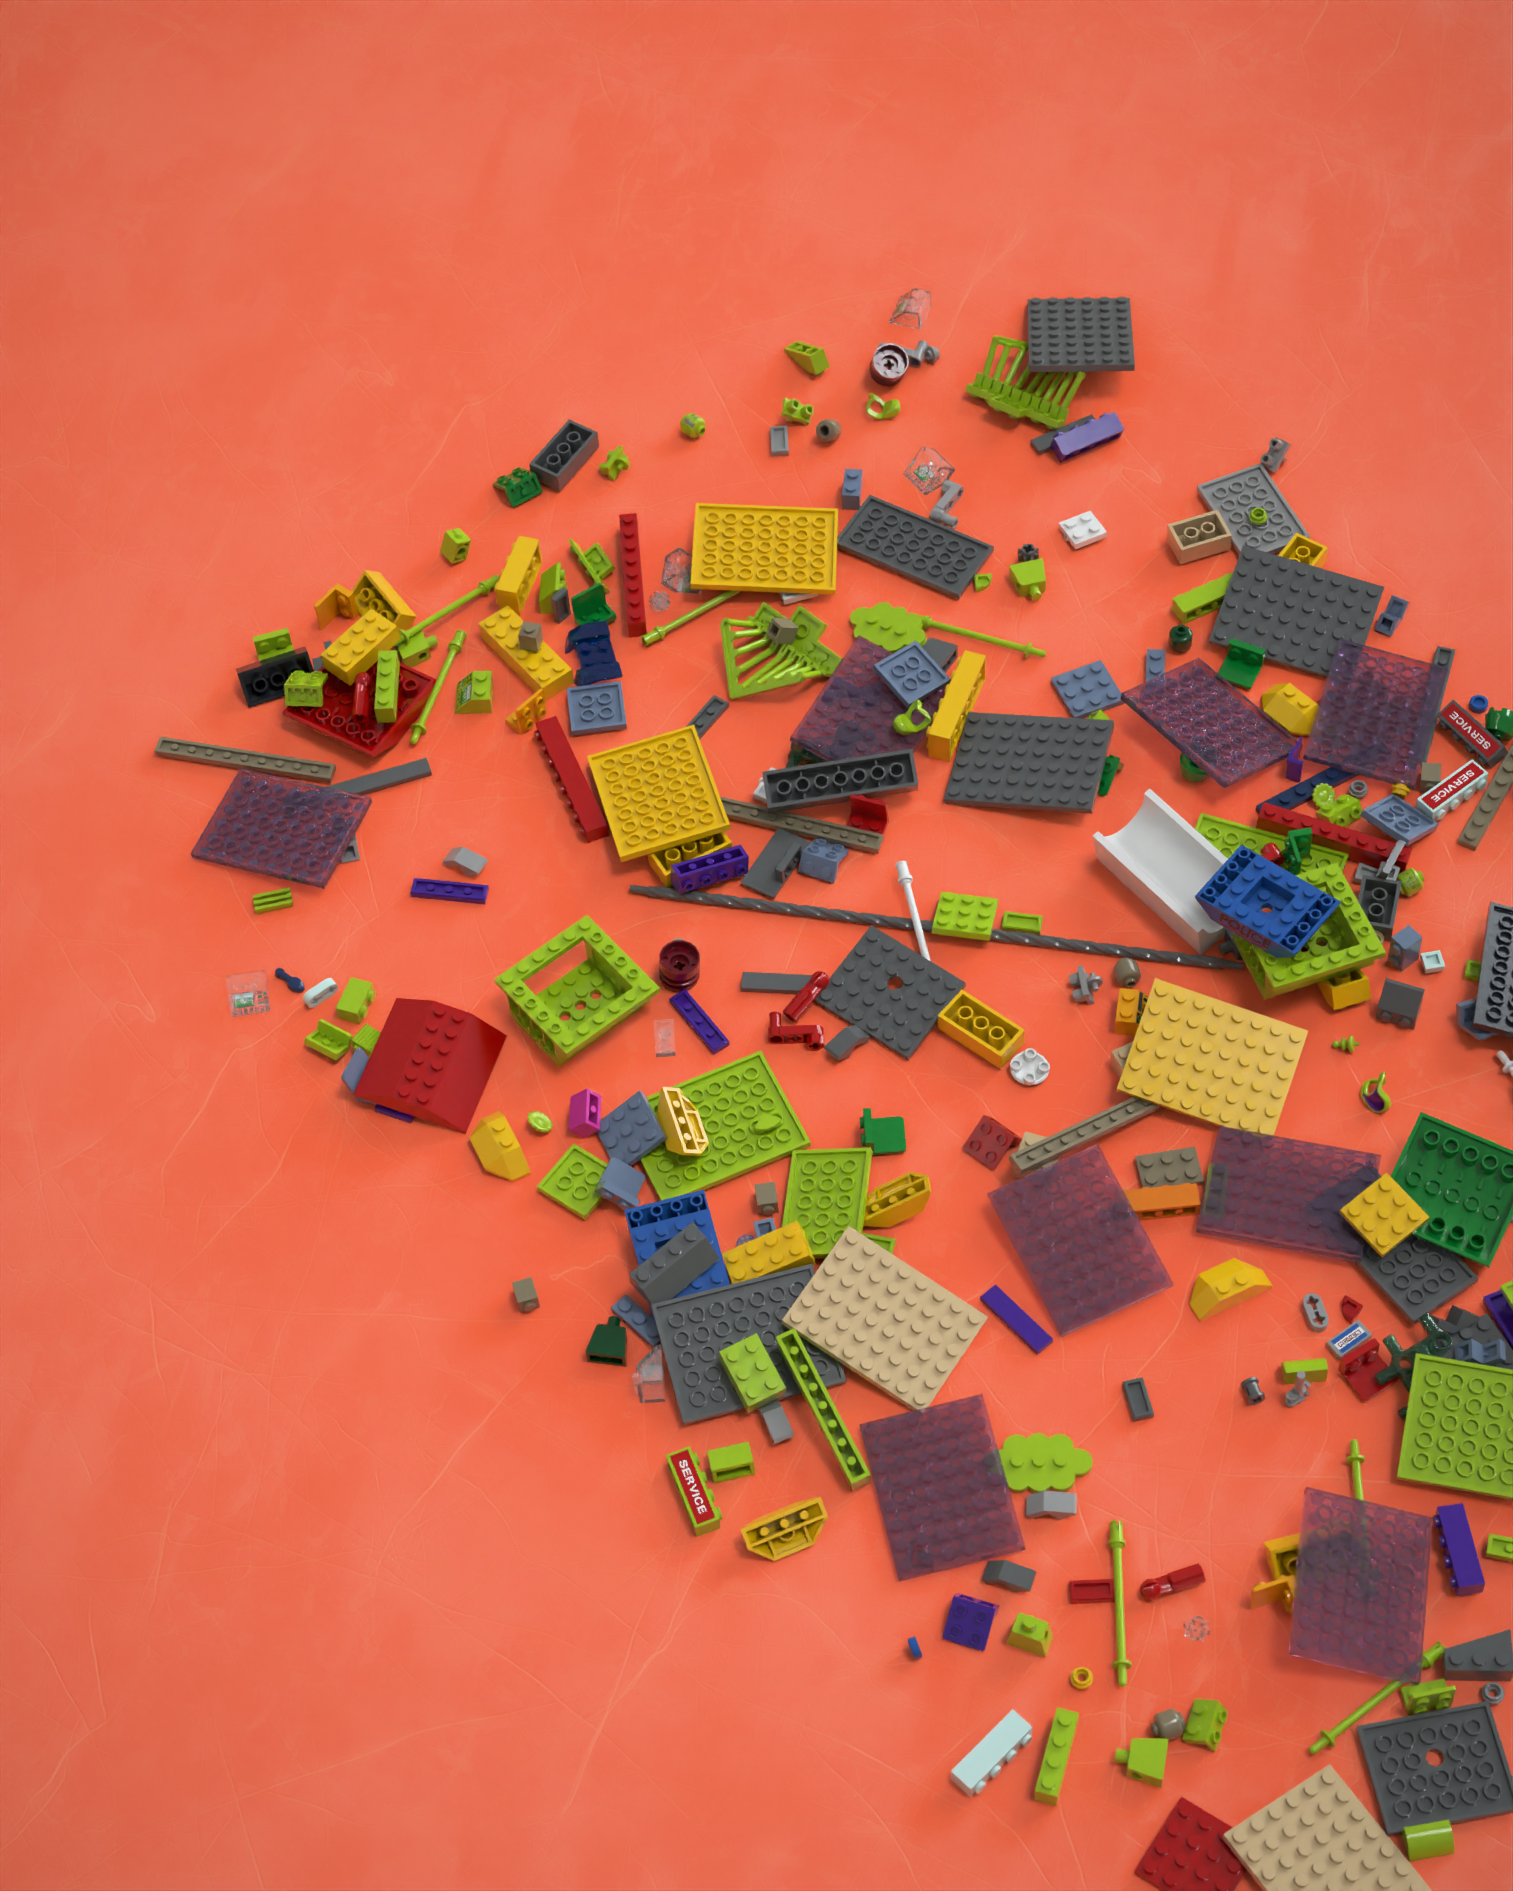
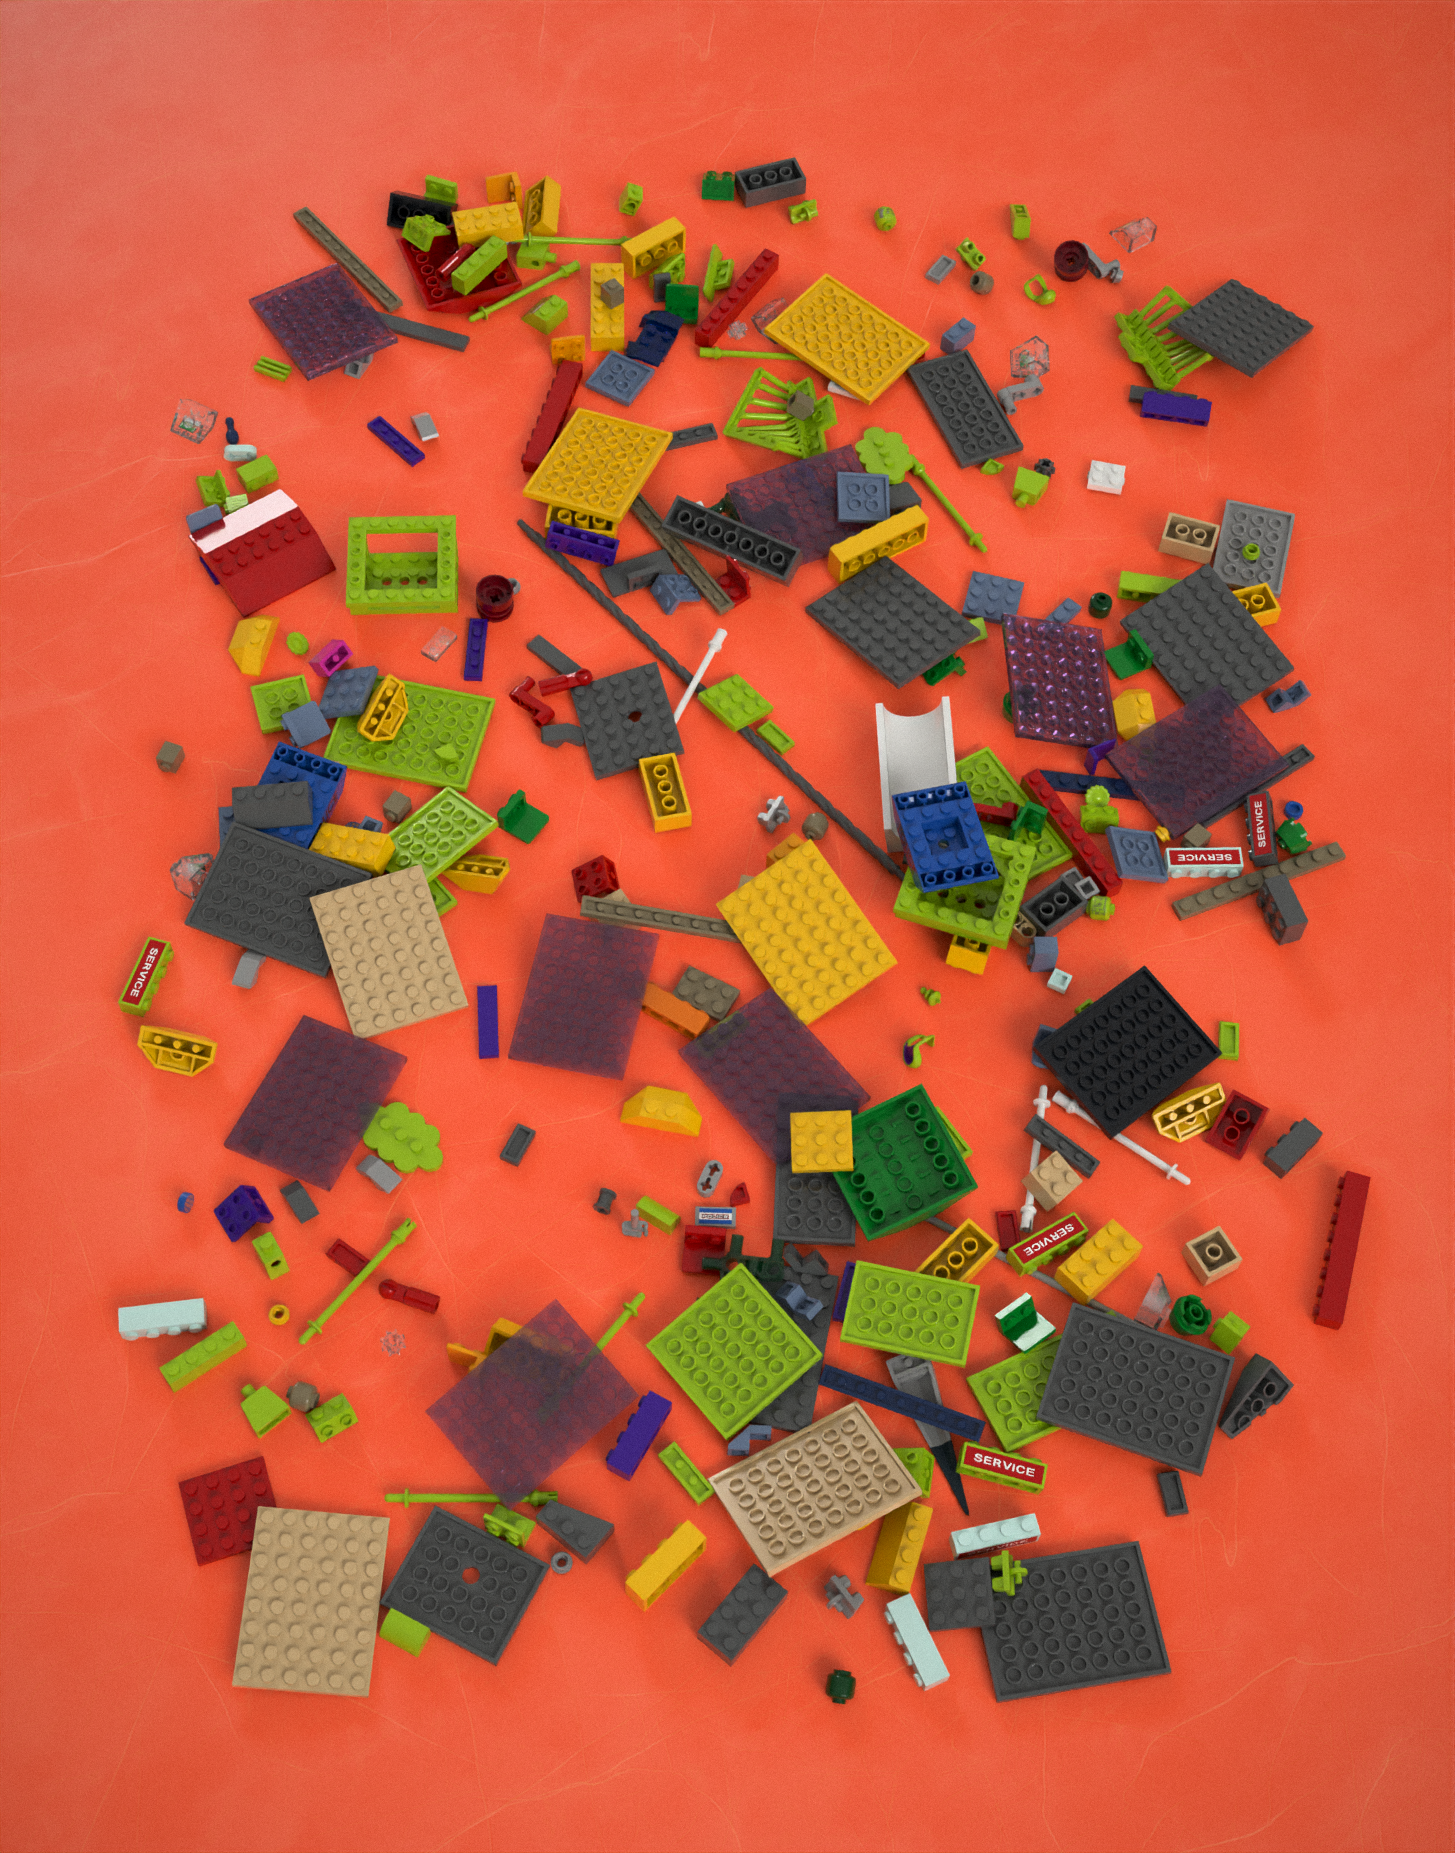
camera: 30 degrees right, 5 degrees up
(608, 1344) = (191, 831): dark green torso -> none
(731, 1462) = (190, 975): lime brick -> none
(752, 1373) = (257, 921): lime brick -> none
(823, 1409) = (281, 984): lime brick -> none
(903, 722) = (823, 531): lime piece -> none
(1029, 1067) = (676, 846): white dish -> none
(1275, 454) = (1313, 514): light grey hips -> none
(1358, 785) = (1133, 807): light grey plate -> none
(1392, 858) = (1094, 878): tile -> none
(1400, 1004) = (998, 994): dark grey slope -> none

